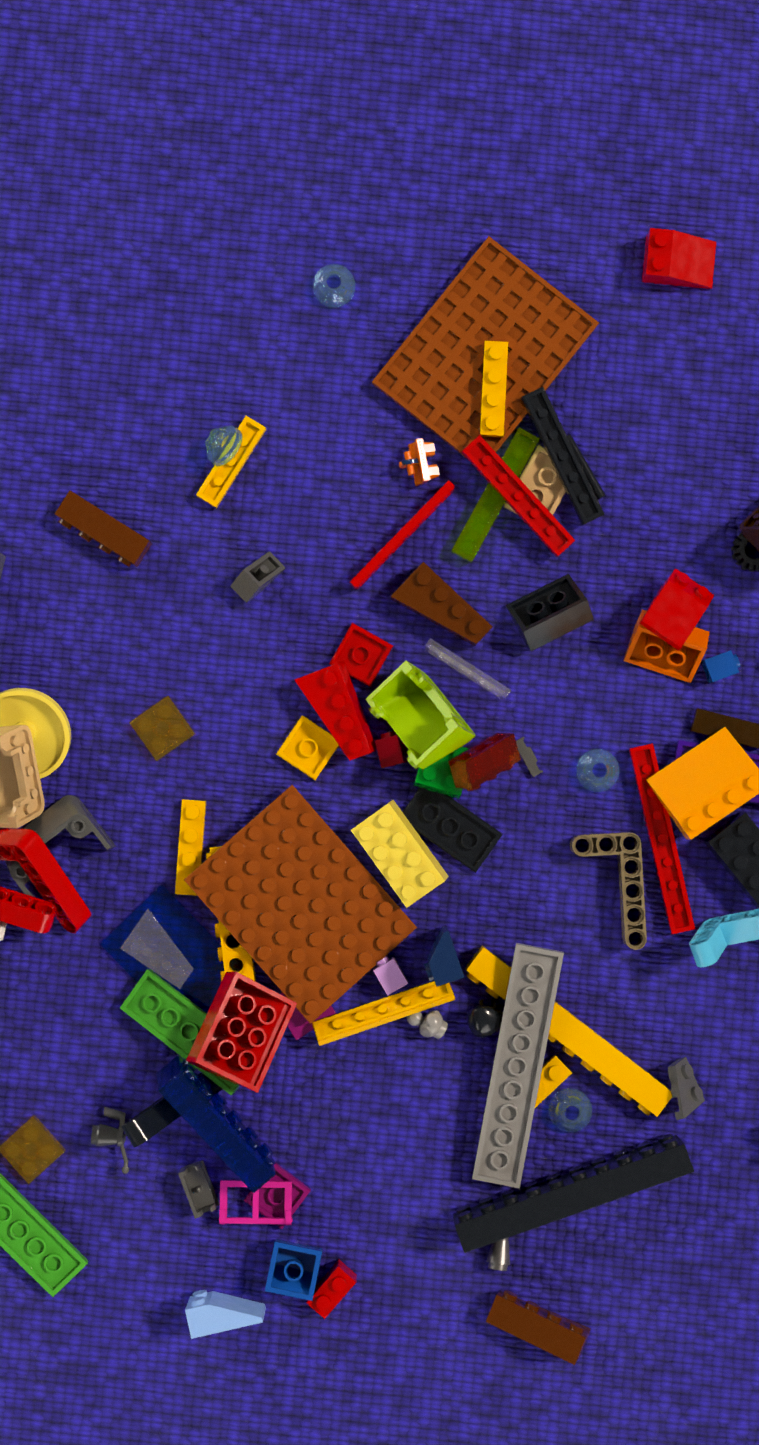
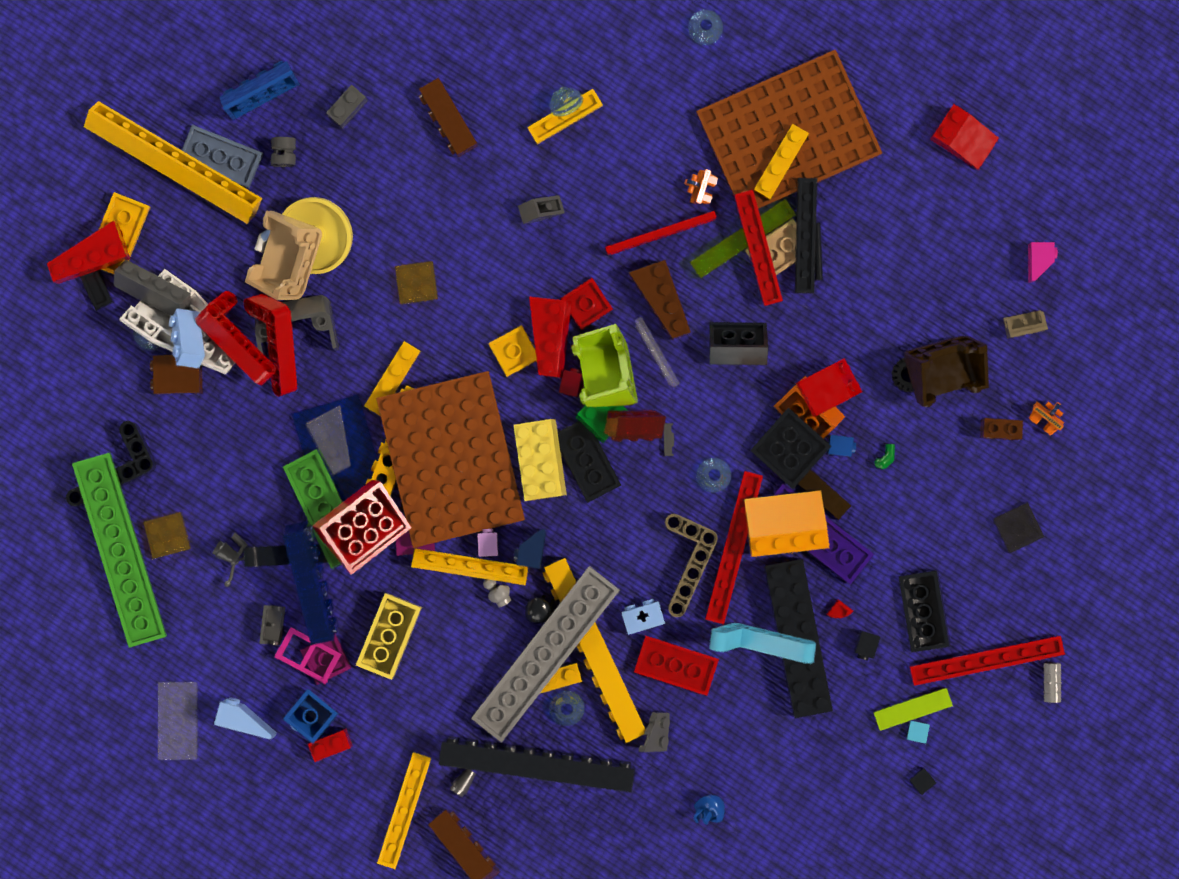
camera: 25 degrees right, 0 degrees up
(149, 1348) = (177, 720): none -> clear tile
(334, 1135) = (389, 636): none -> light yellow brick
(450, 1318) = (404, 810): none -> yellow plate
(614, 965) = (653, 619): none -> light blue brick
(666, 1001) = (676, 665): none -> red plate
(668, 697) = (791, 448): none -> black plate

